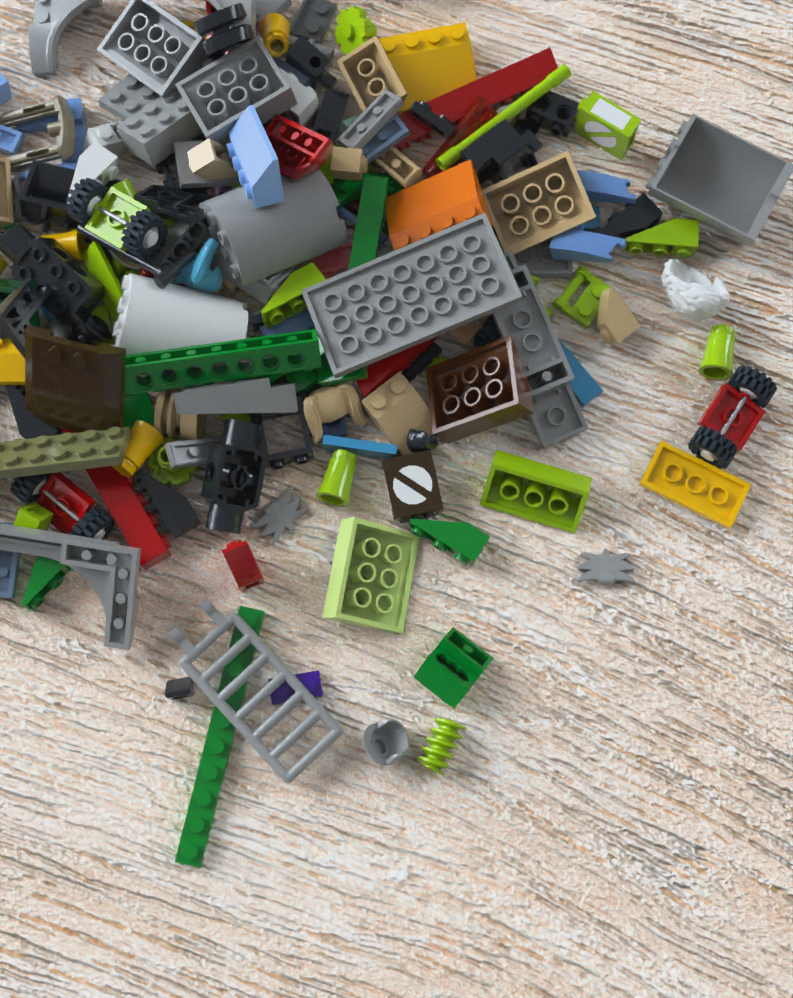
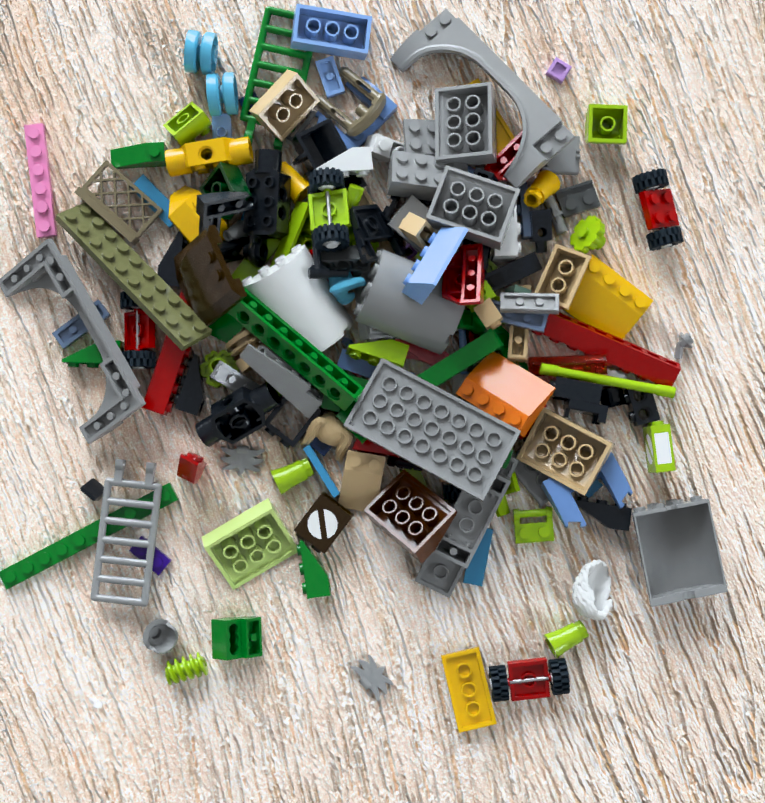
camera: 50 degrees right, 10 degrees up
(33, 517) = (116, 319): lime panel -> none
(143, 443) = (210, 345): yellow plant -> none
(222, 25) = (505, 166): black wheel -> none
(420, 441) = (353, 506): black arm -> none
(423, 113) = (564, 330): black plate -> none
(526, 31) = (684, 341): none -> light grey plate
(536, 491) = (384, 598): lime slope -> none
(614, 318) = (532, 557): tan slope -> none
(673, 237) = (620, 549): lime slope -> none

